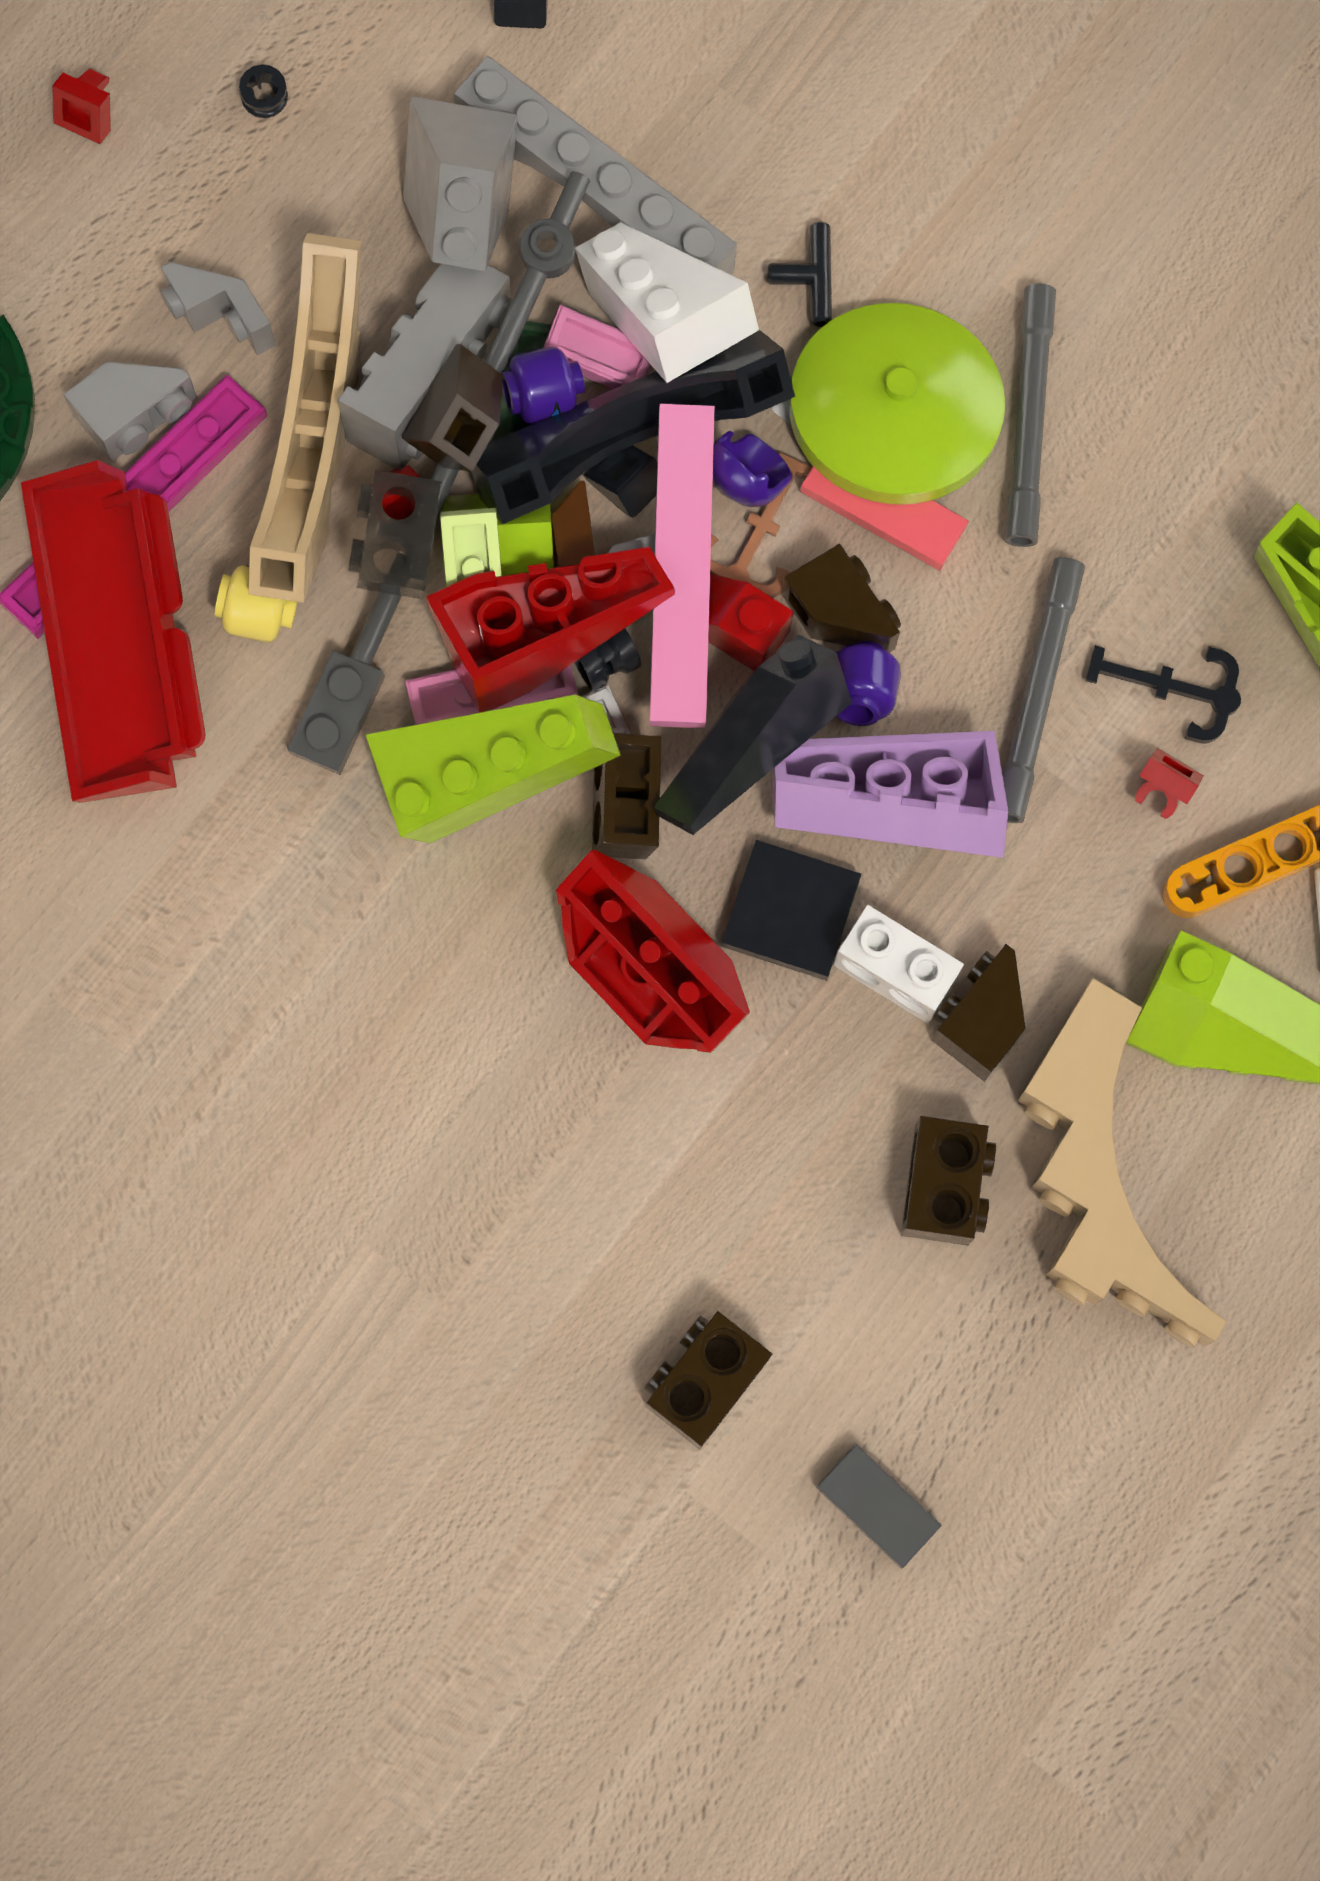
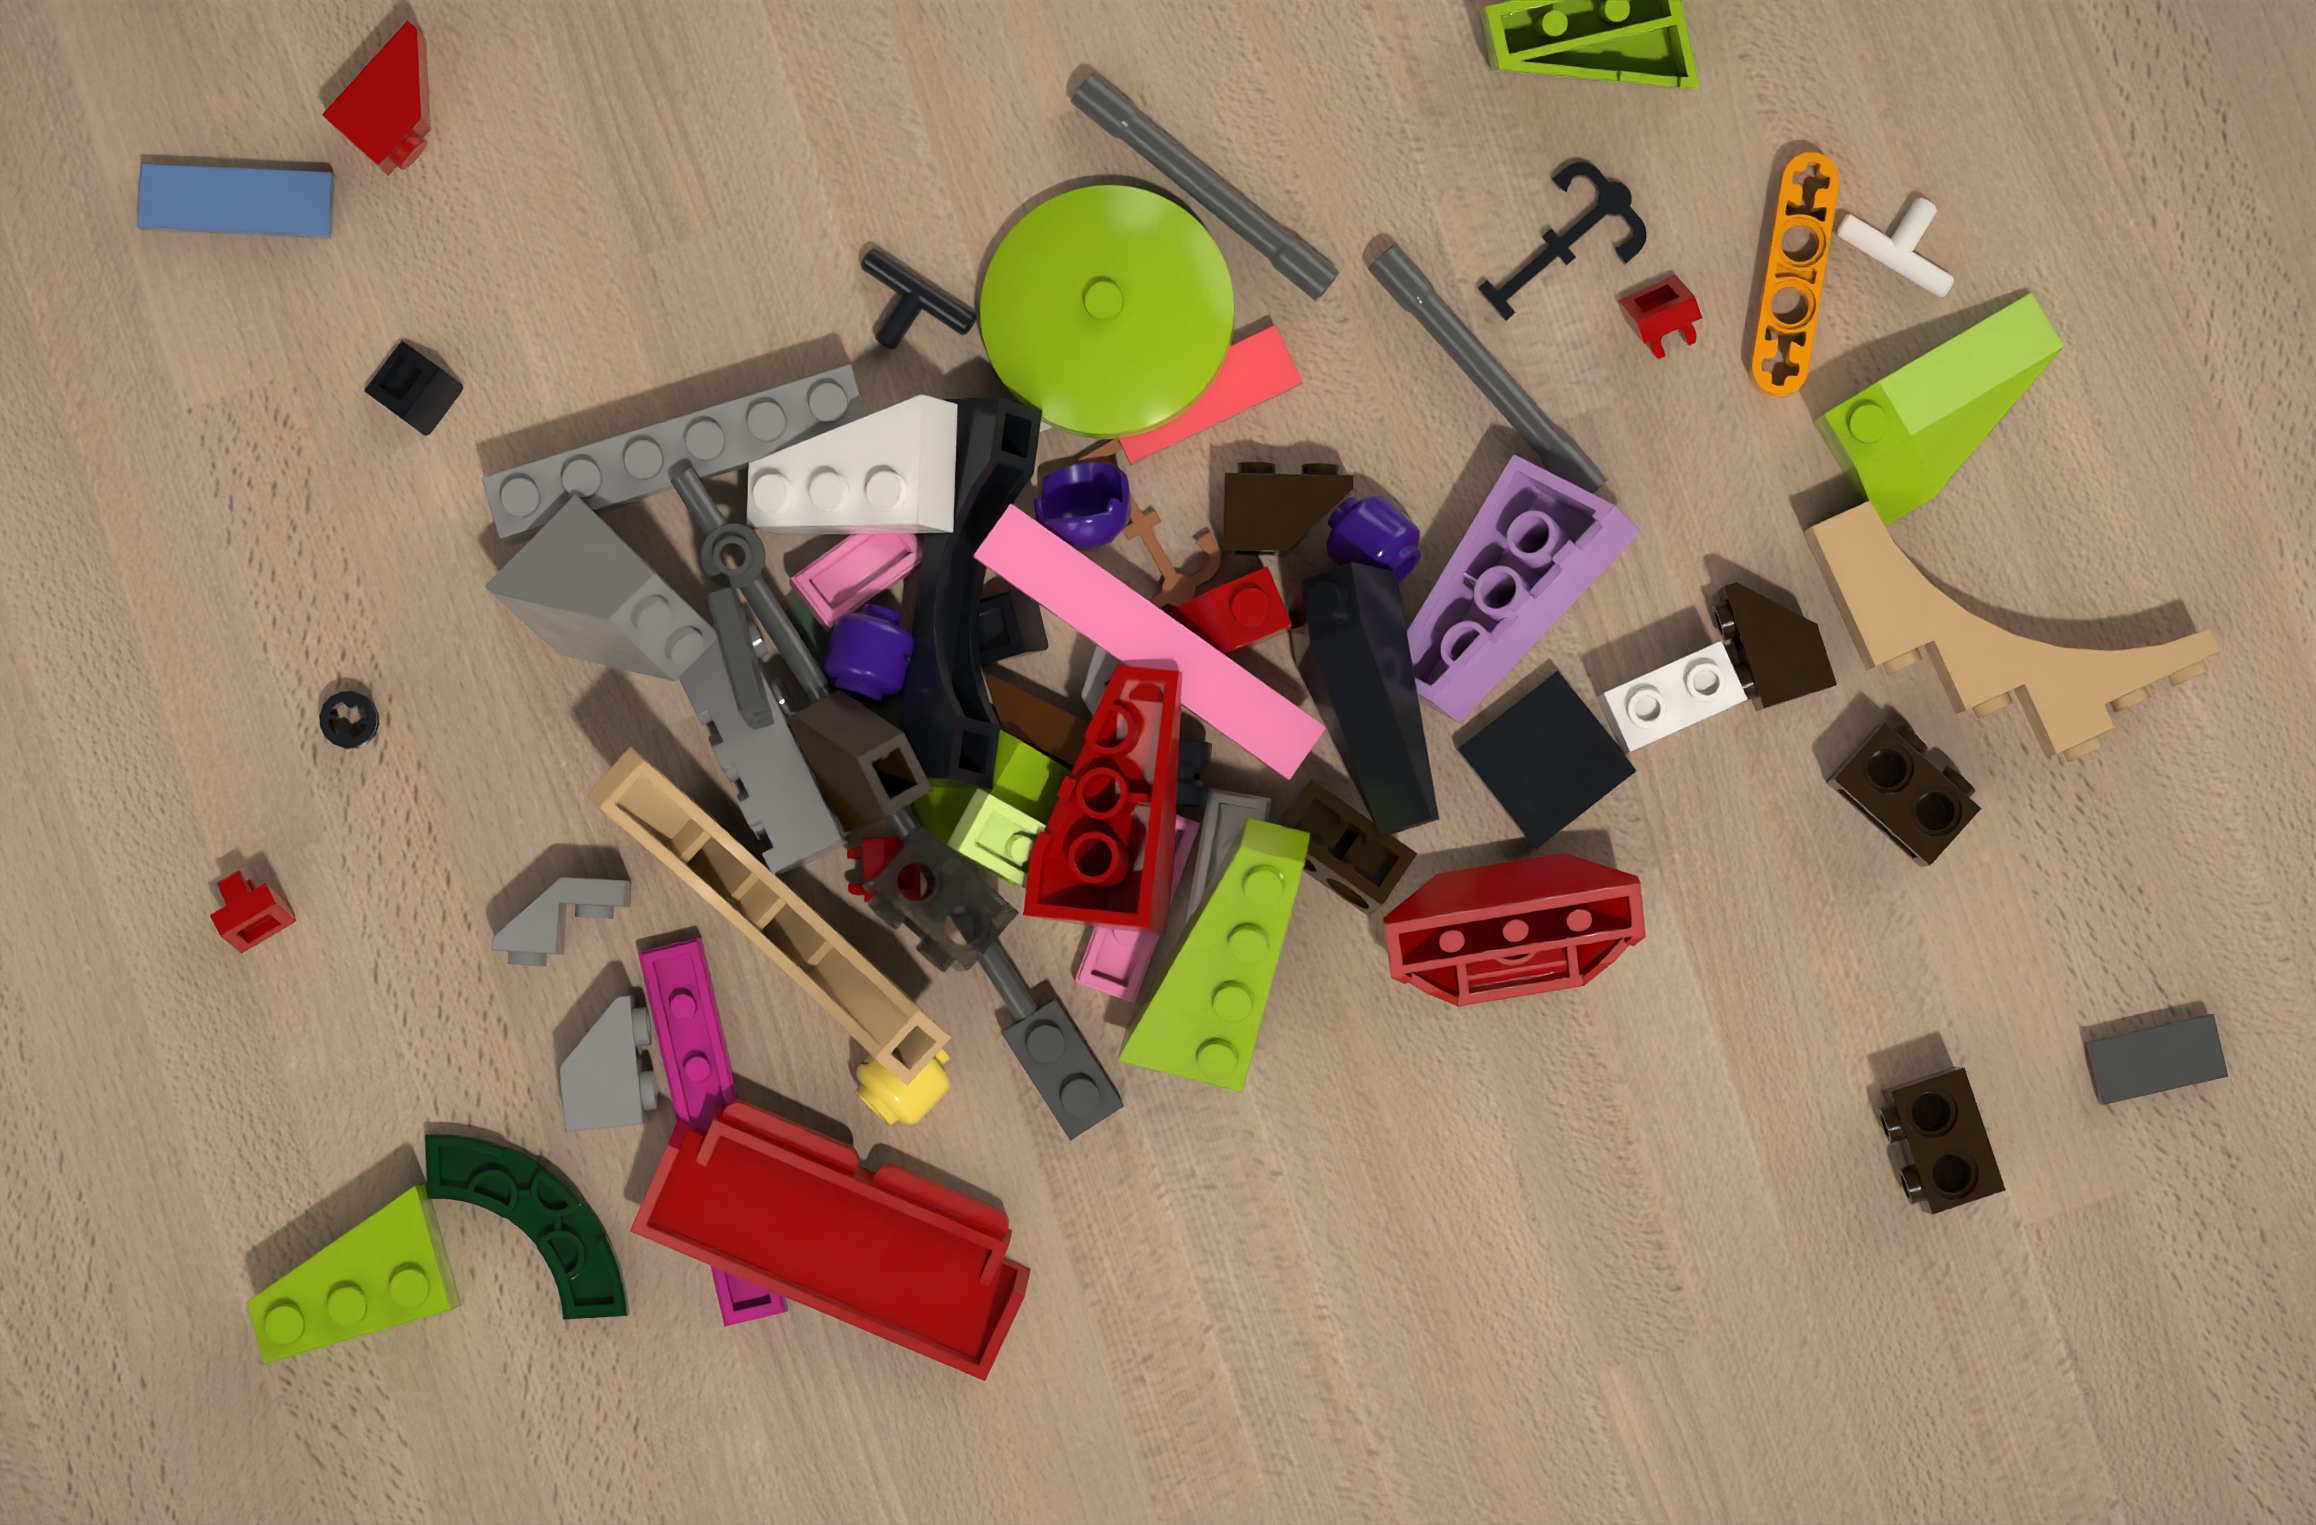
camera: 55 degrees left, 10 degrees up
(477, 290) = (740, 658): none -> dark grey tile

